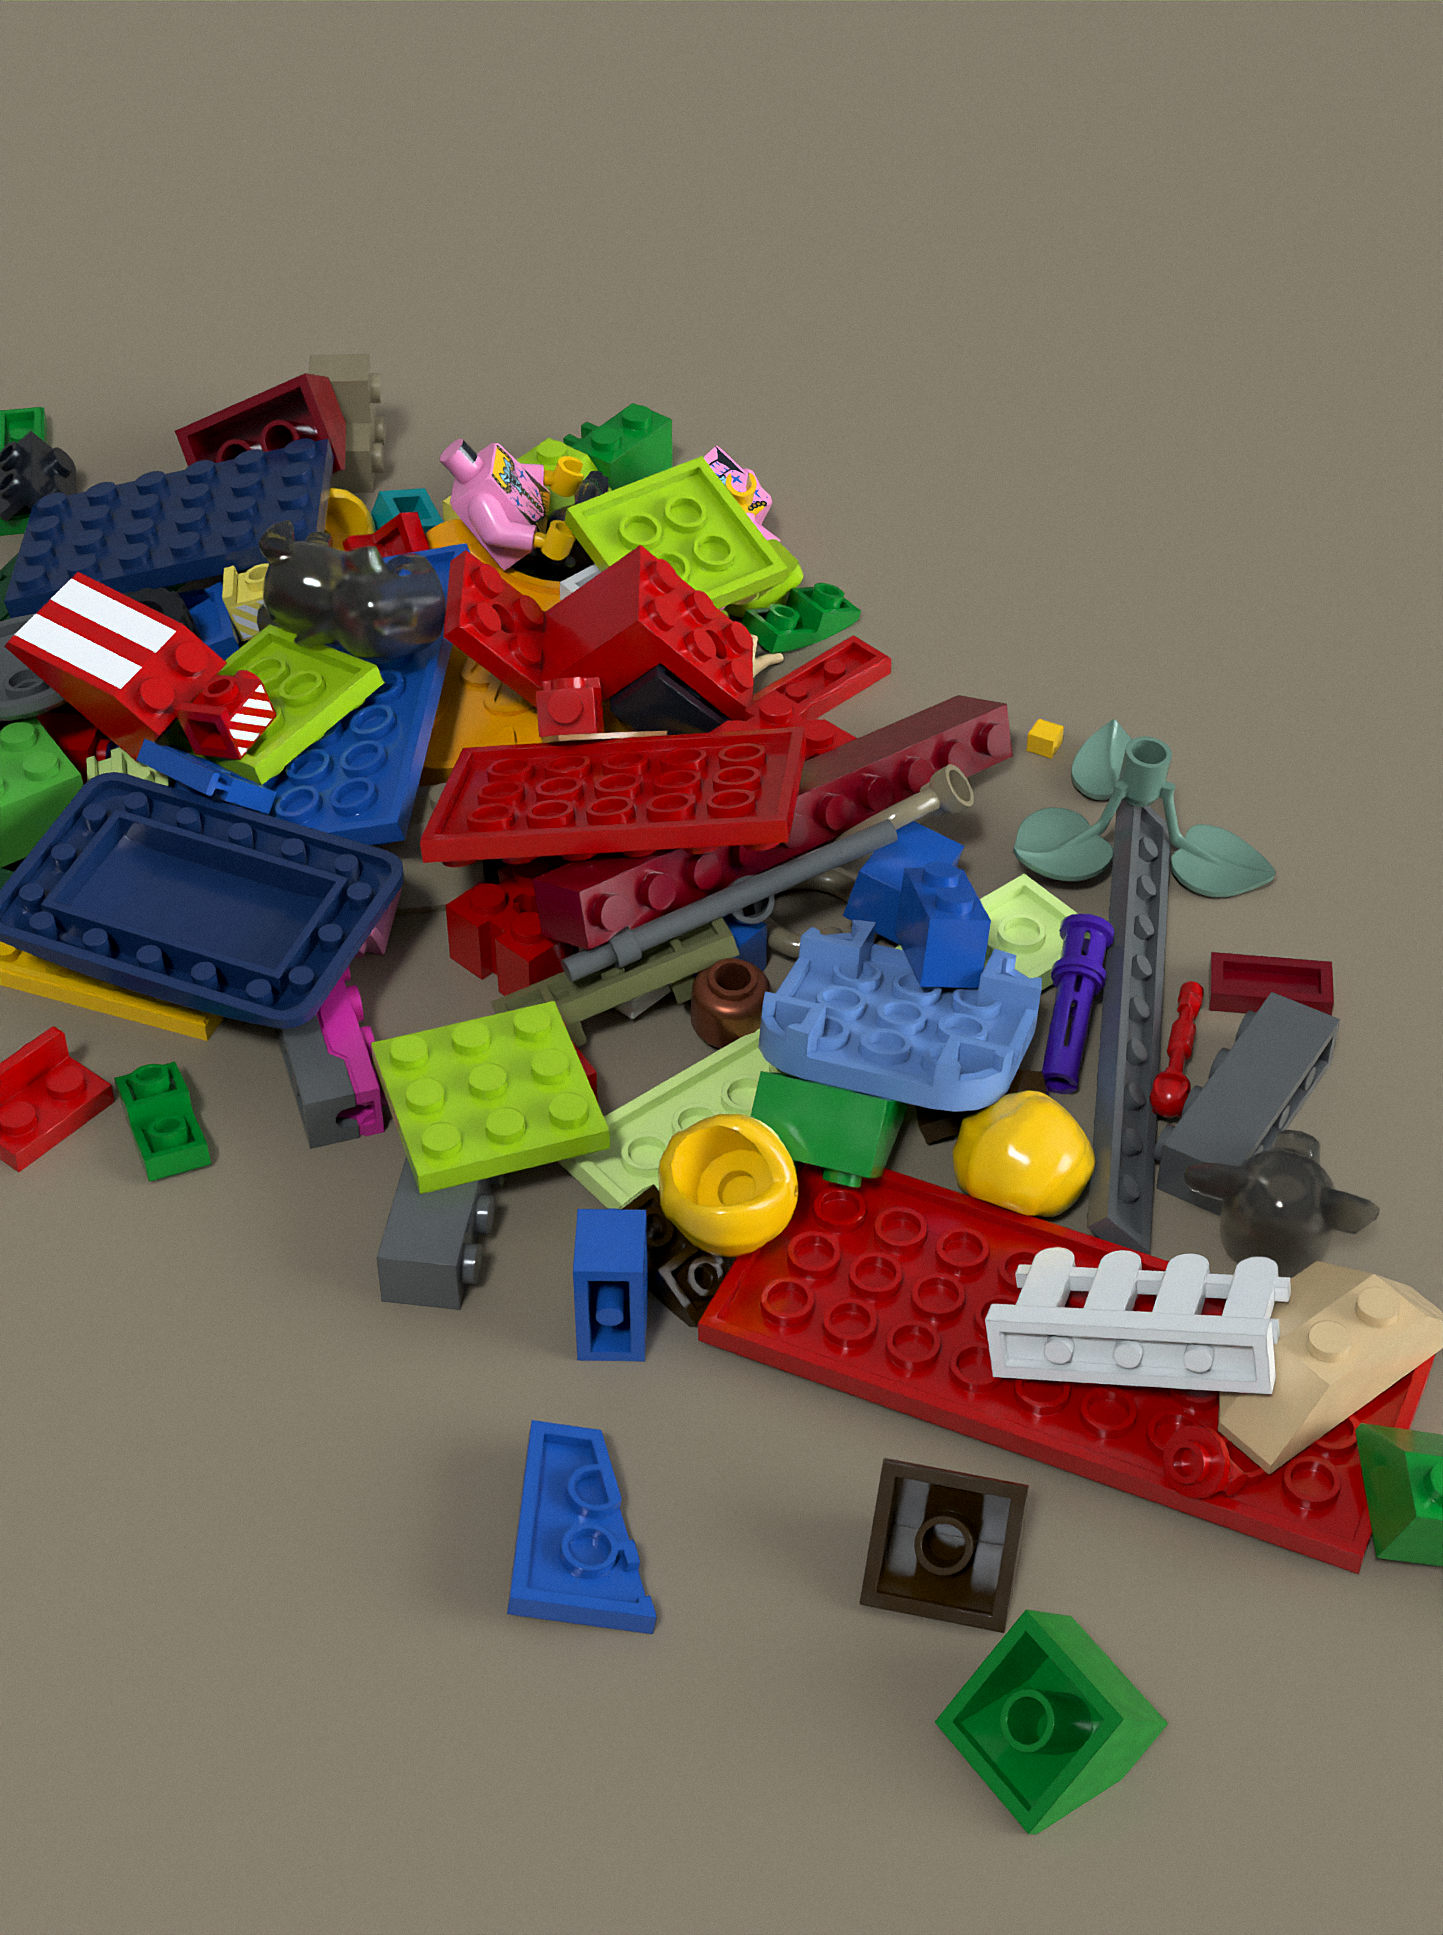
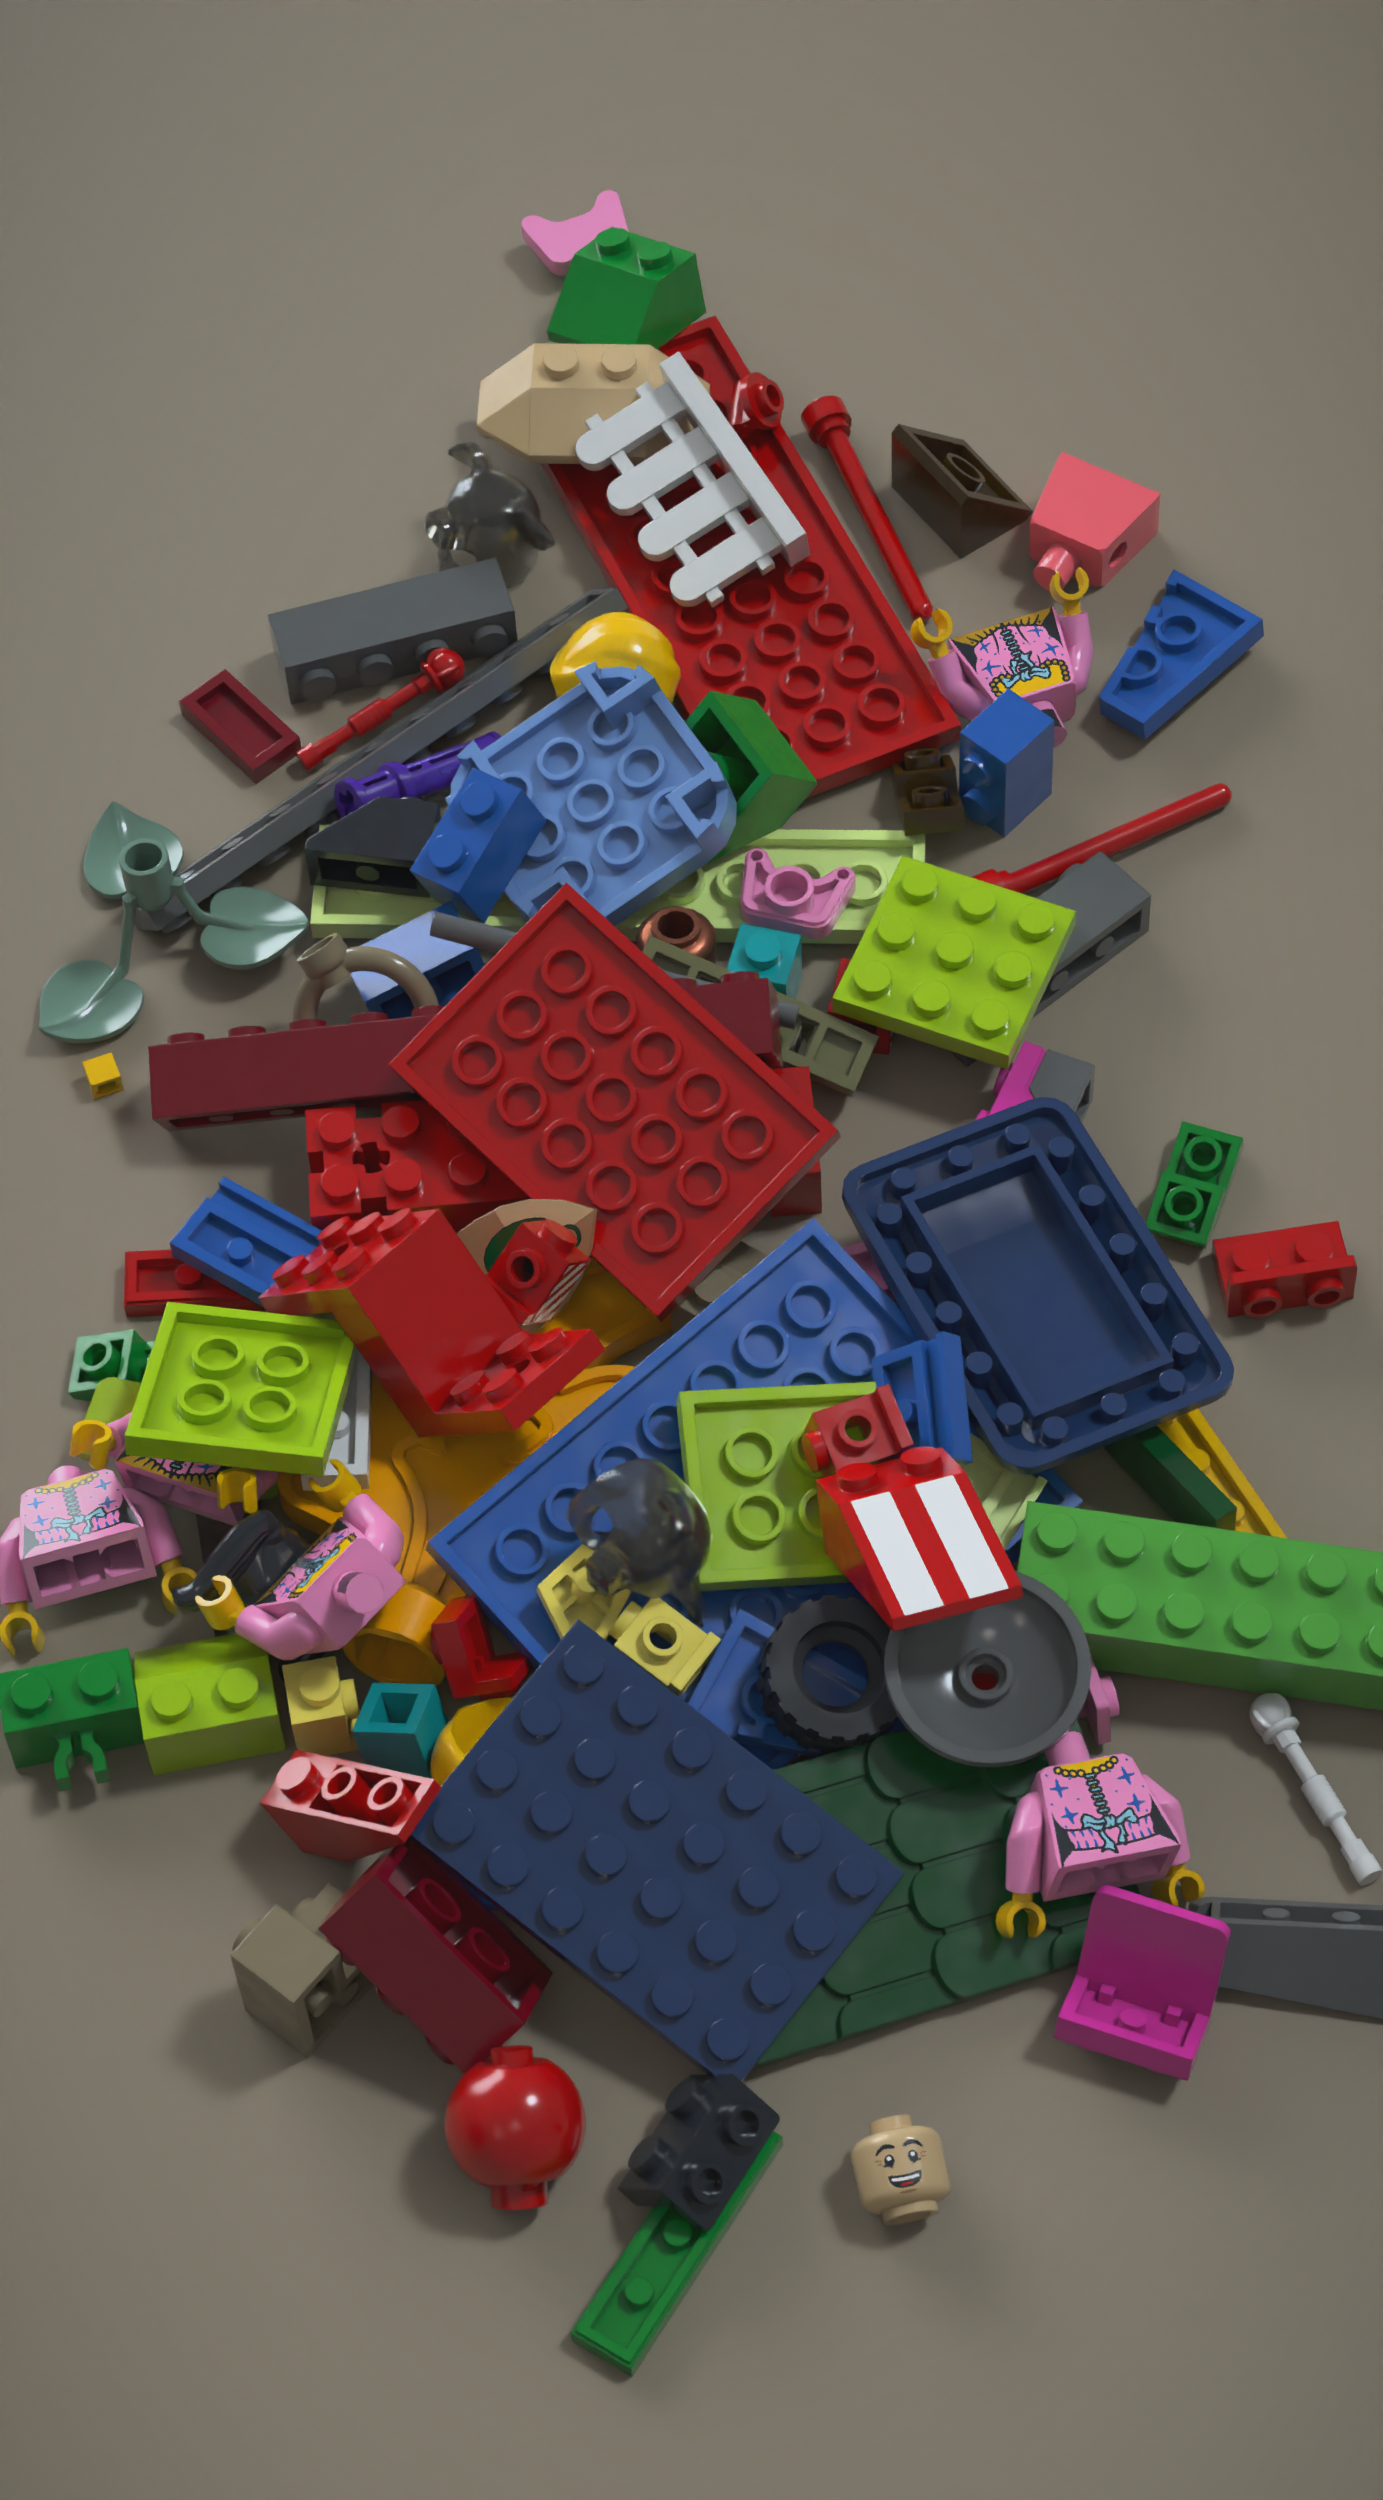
camera: 135 degrees left, 15 degrees up
(141, 424) = (515, 2125): none -> red brick
(378, 611) = (639, 1412): clear smoke piece -> none
(381, 456) = (346, 1806): none -> red slope
(531, 1223) = (1112, 841): none -> red piece
(648, 1037) = (771, 954): none -> teal brick
(682, 1084) = (791, 899): none -> bright pink piece
(701, 1396) = (1034, 655): none -> torso
(728, 1184) = (868, 745): yellow piece -> none
(784, 1598) = (1089, 523): none -> coral torso
(811, 675) = (242, 1239): none -> blue plate
(1027, 911) = (374, 847): none -> black slope
(1049, 1720) = (1000, 357): green slope -> none
(1131, 1536) = (829, 426): none -> red piece

